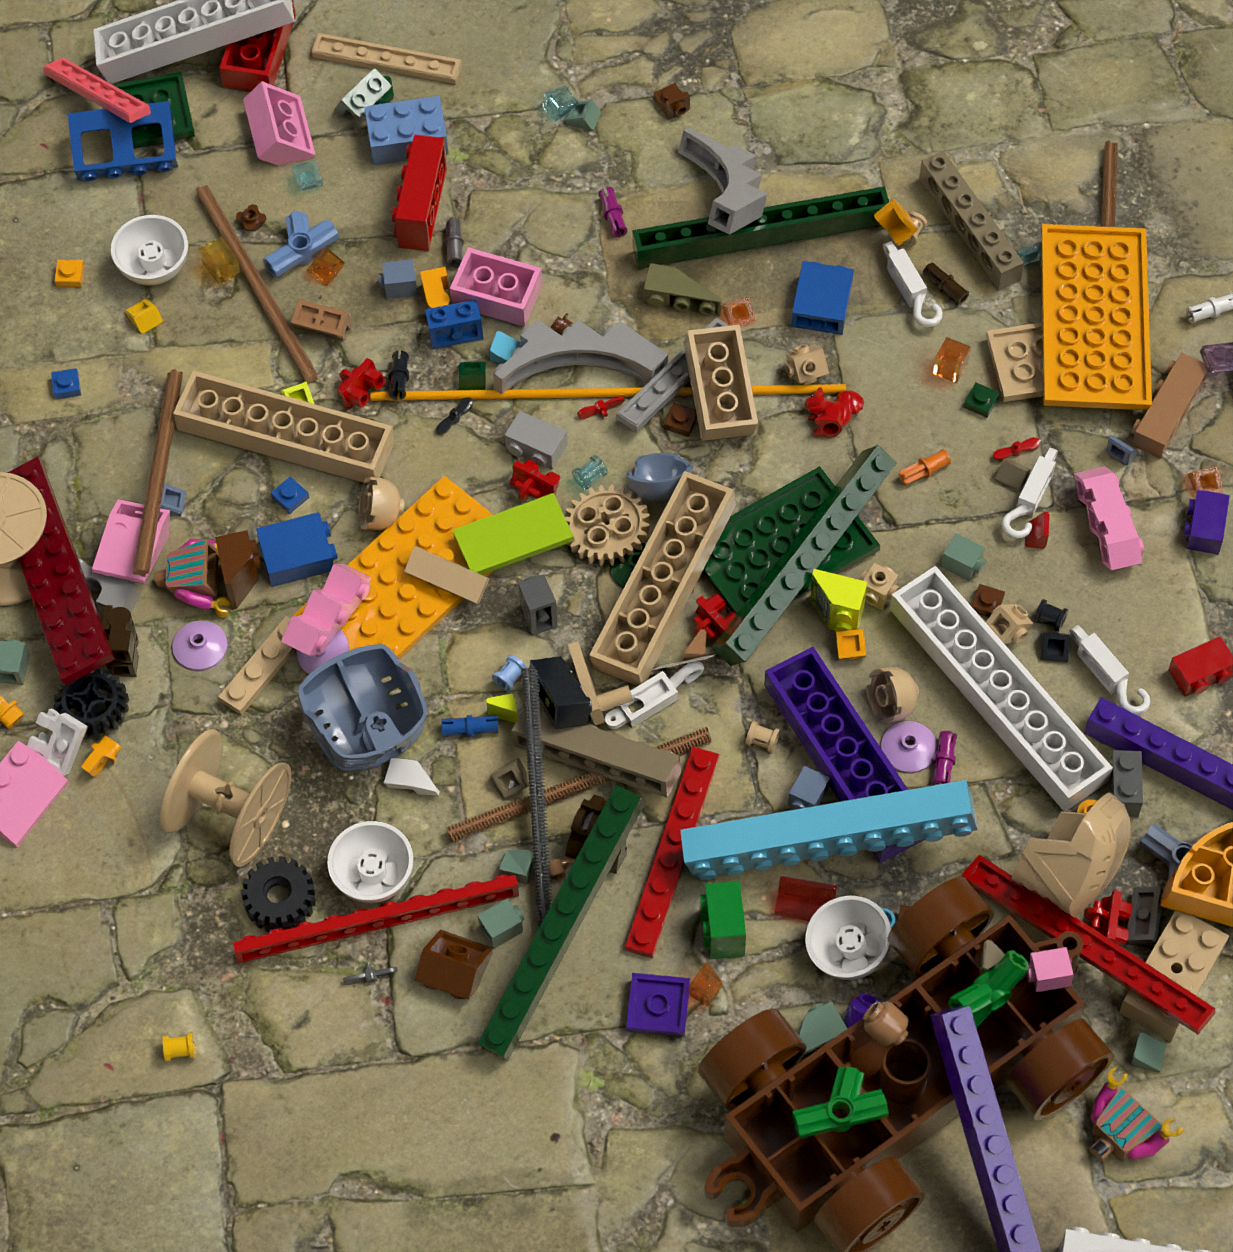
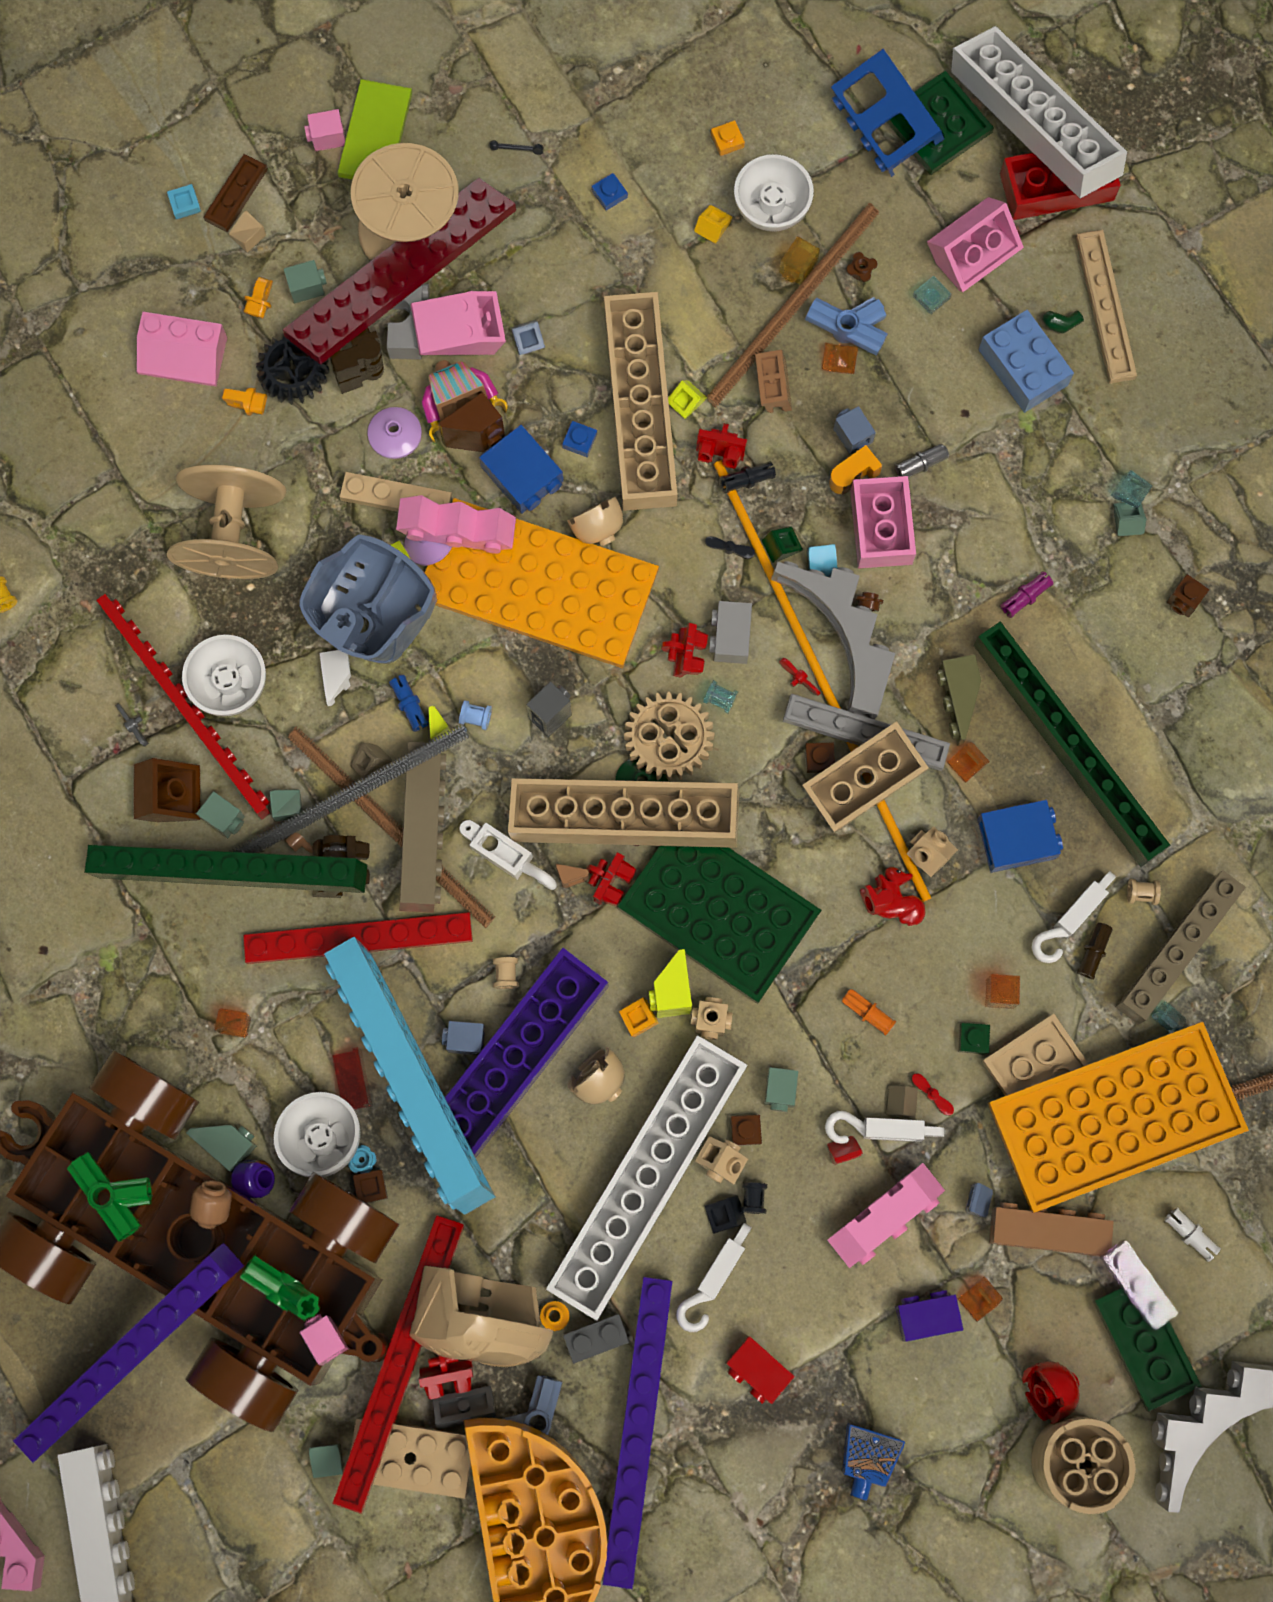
camera: 65 degrees right, 15 degrees up
(64, 742) = (243, 359): white plate -> none
(96, 90) = (926, 62): coral tile -> none
(157, 474) = (536, 312): medium nougat axle -> none
(280, 914) = (186, 626): black tyre -> none
(365, 93) = (1046, 304): bracket -> none
(420, 192) = (955, 405): red brick -> none
(446, 574) = (545, 614): tan tile -> none
(454, 324) = (824, 501): blue bracket -> none
(513, 535) = (615, 655): lime tile -> none
(561, 693) = (463, 768): black brick -> none
(599, 702) = (472, 803): tan piece -> none
(657, 475) = (739, 761): sand blue cylinder -> none
(658, 1004) = (197, 987): dark purple plate -> none
(682, 662) = (547, 868): white sticker -> none
(723, 920) = (294, 1012): green brick -> none
(734, 174) = (1124, 686): light grey arch -> none
(803, 556) = (706, 935): brick -> none
(896, 221) = (1138, 875): light orange panel -> none
(906, 757) = (560, 1129): lavender dish -> none
(944, 758) = (554, 1153): magenta pin -> none
(989, 956) = (313, 1279): dark tan slope -> none
(1126, 1125) = (238, 1465): torso -> none

